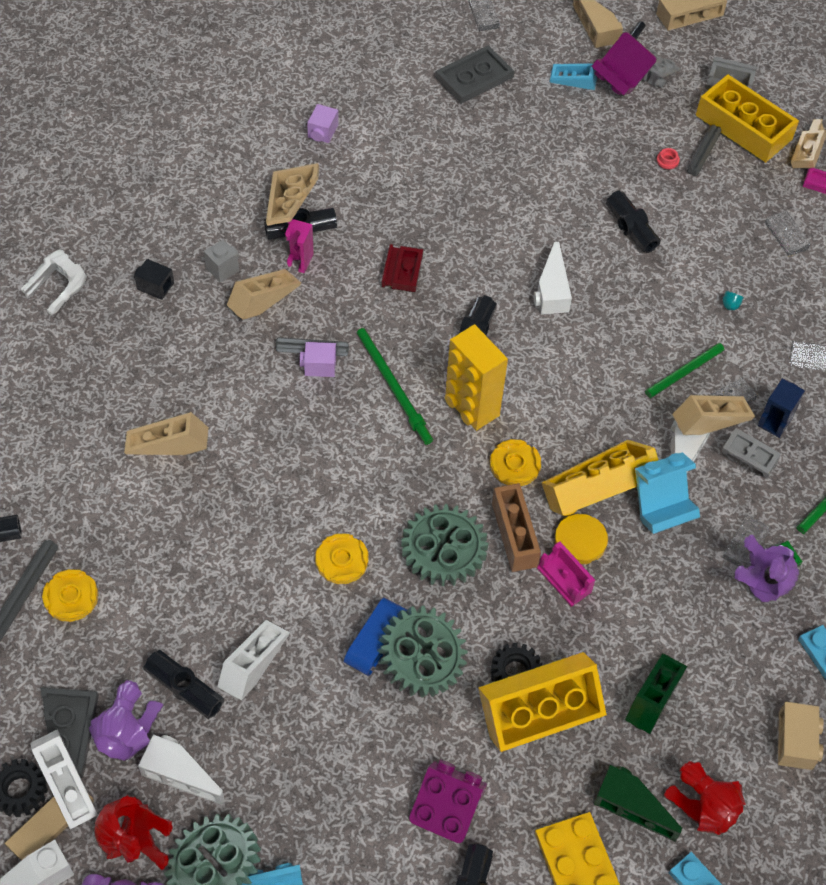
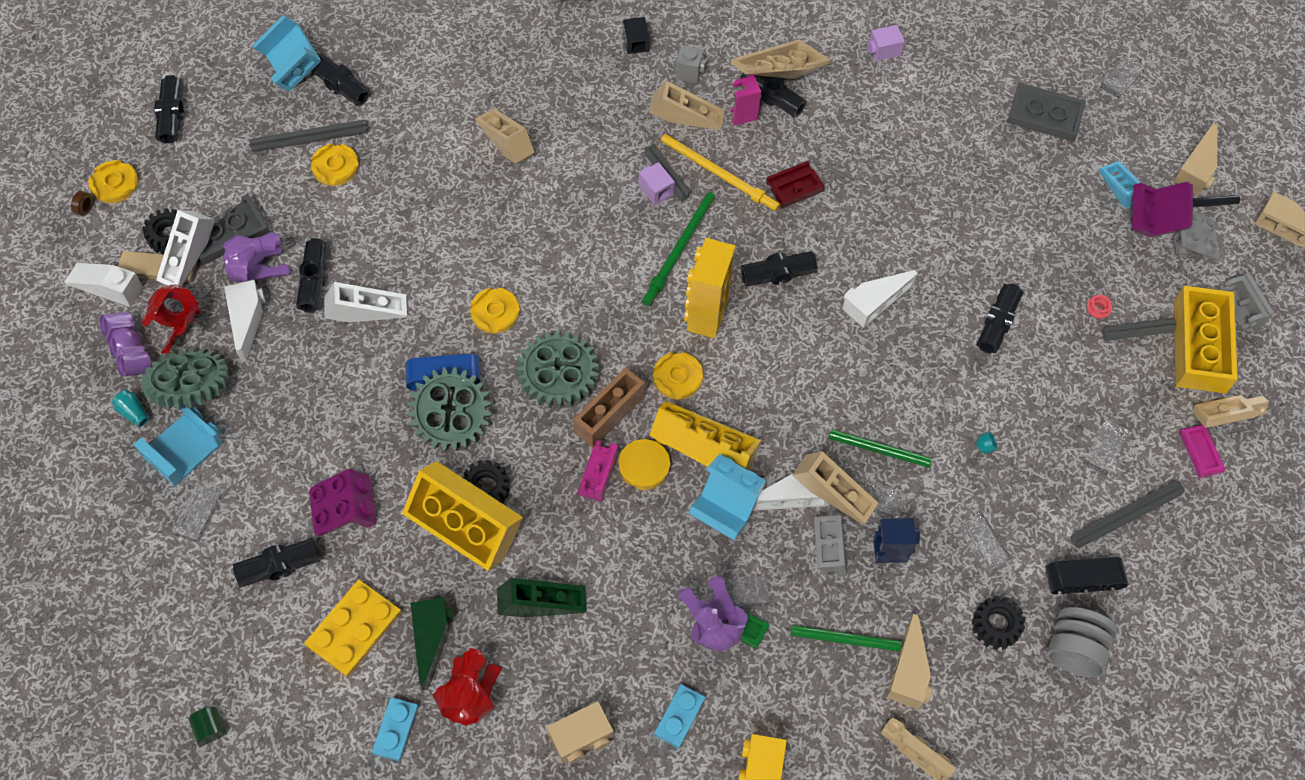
camera: 55 degrees right, 5 degrees up
(389, 299) = (757, 194): none -> yellow bar

